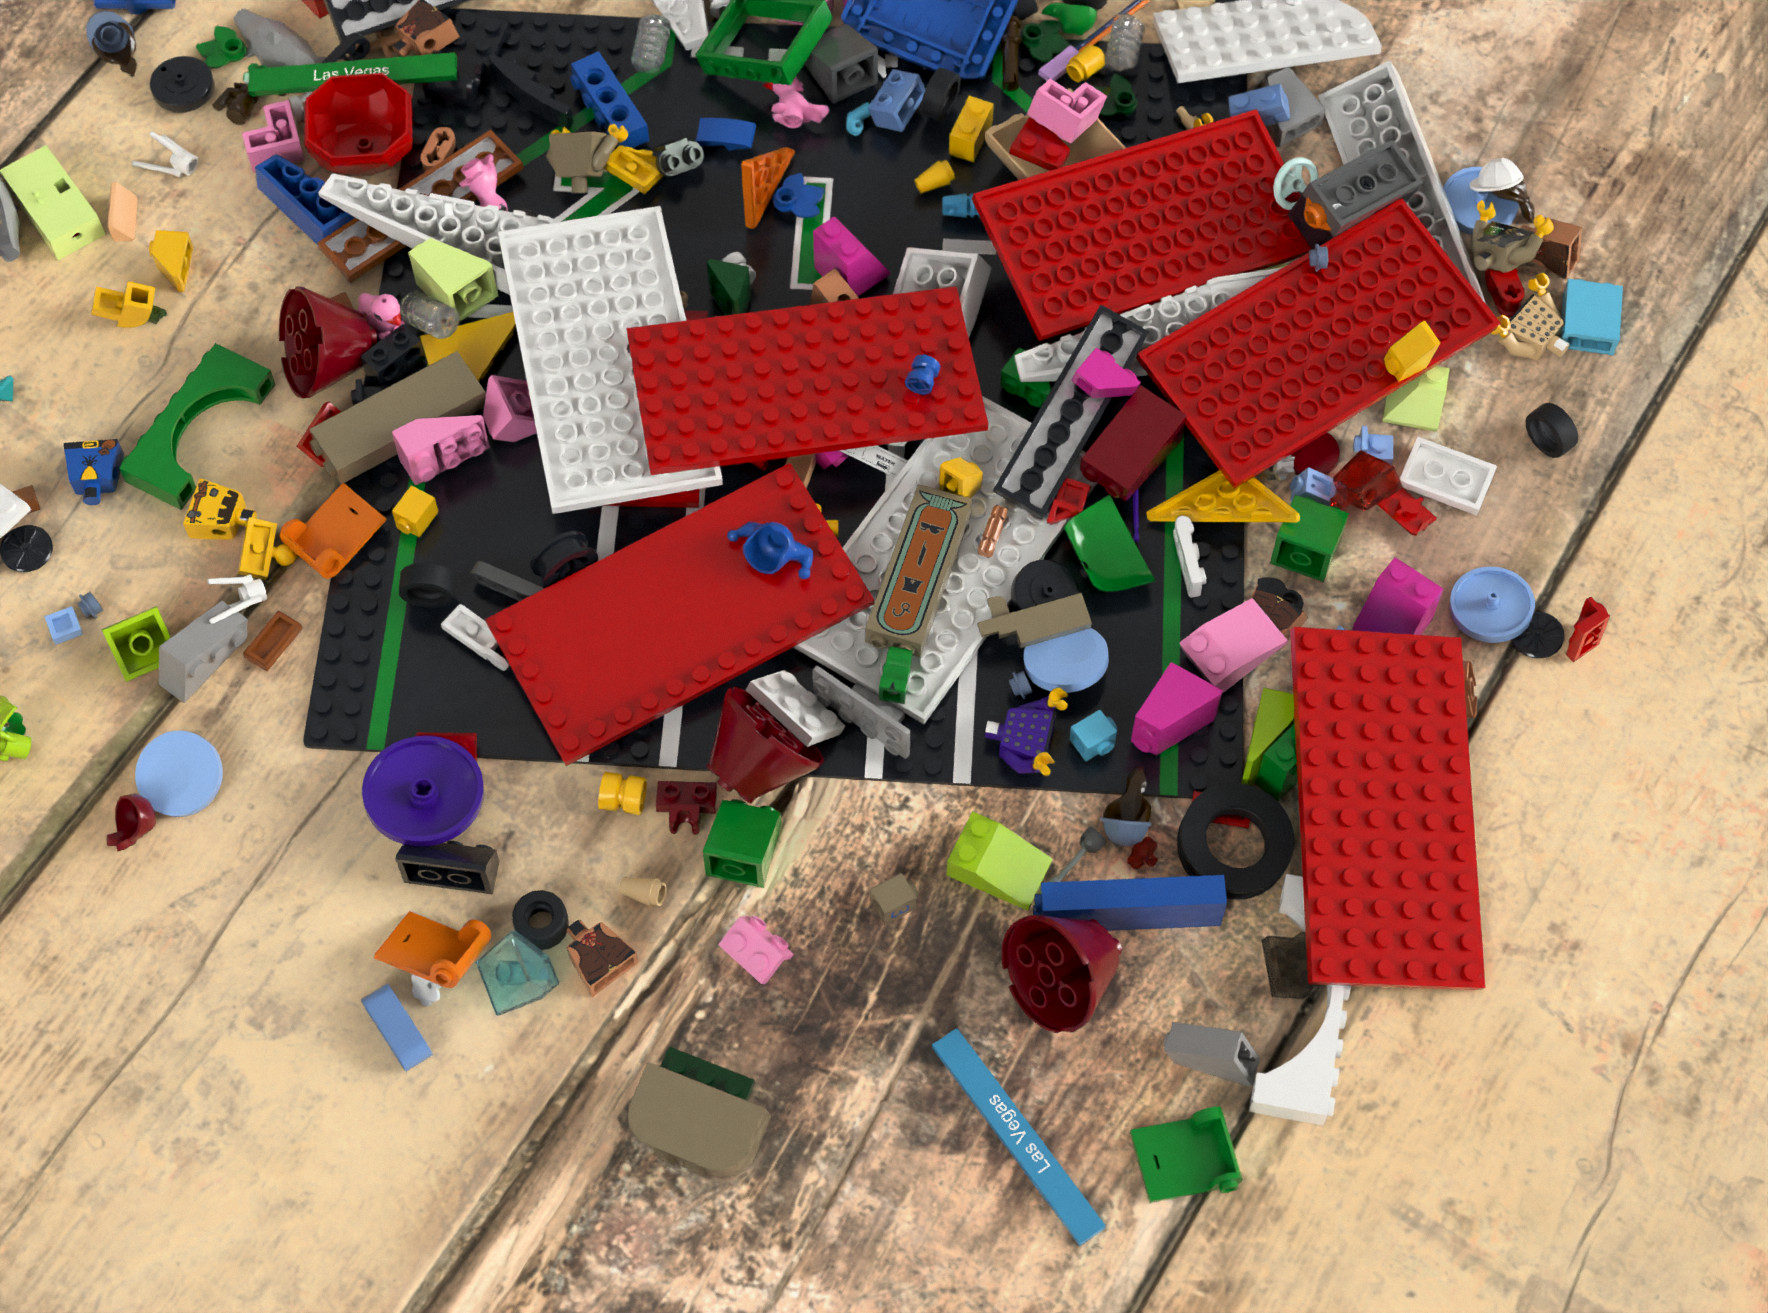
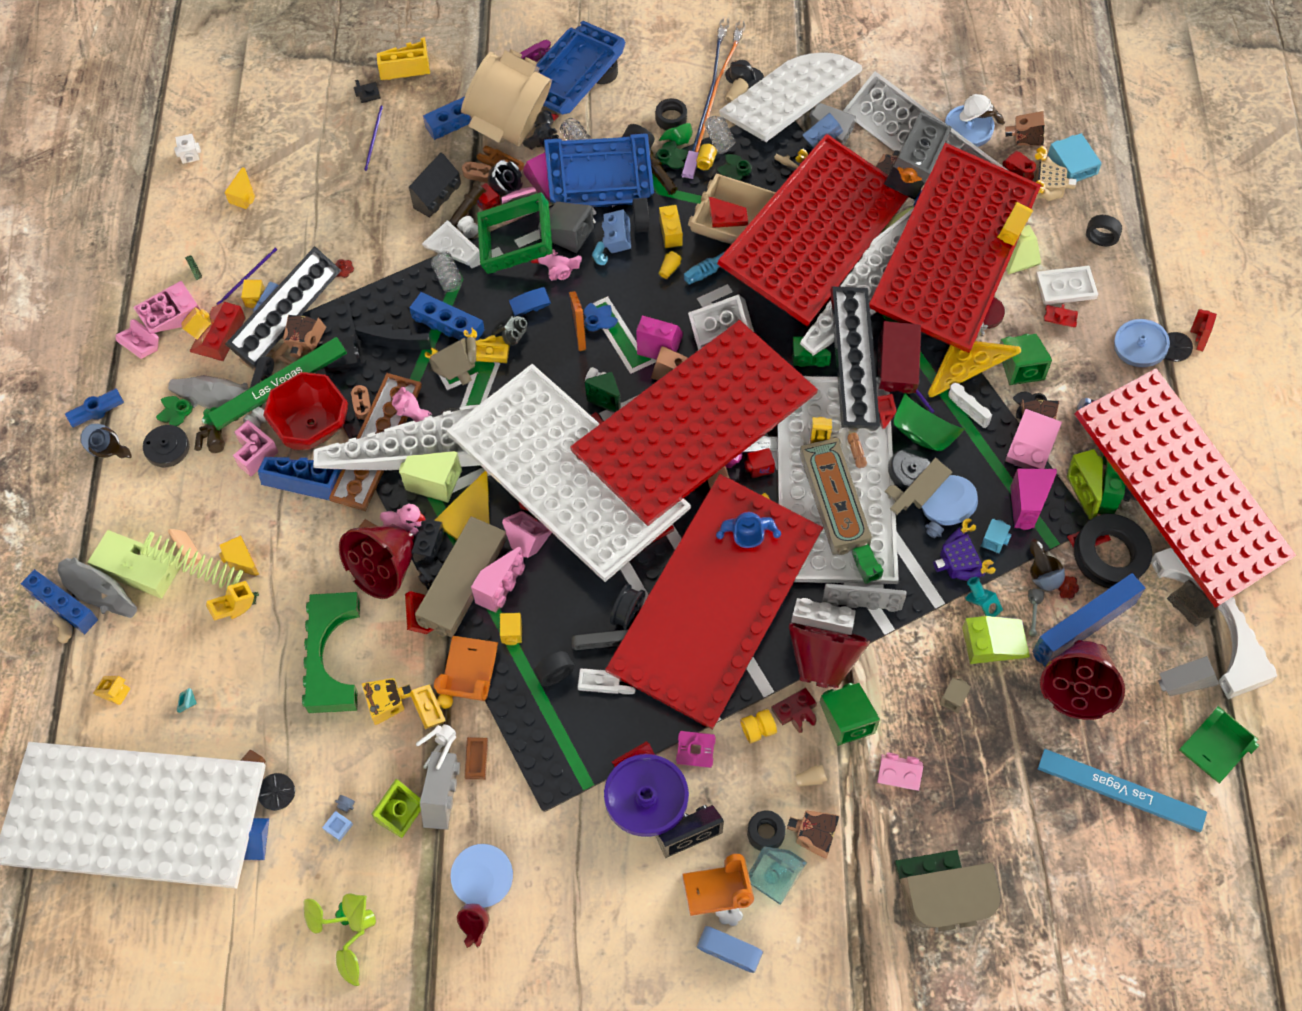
camera: 30 degrees left, 0 degrees up
(93, 467) = (284, 716): blue torso -> none
(158, 276) = (145, 548): none -> yellowish green piece
(180, 159) = (201, 493): white plant -> none
(429, 315) = (435, 503): clear piece -> none
(542, 784) = (685, 757): none -> dark pink piece
(861, 481) = (760, 463): none -> red brick
(923, 372) = (765, 381): blue wheel -> none
(1020, 802) = (983, 597): none -> teal bracket
(1064, 111) = (730, 186): bright pink brick -> none
(1104, 377) = (863, 326): dark pink slope -> none
(1291, 180) = (875, 164): light aqua piece -> none
(1313, 485) = (1002, 329): light blue bracket -> none
(1319, 257) = (928, 197): sand blue plate -> none
(1364, 482) = (1031, 311): clear red torso -> none
(1376, 445) = (1017, 291): light blue bracket -> none
(1399, 602) = (1101, 370): dark pink slope -> none
(1502, 245) = (1005, 143): torso -> none

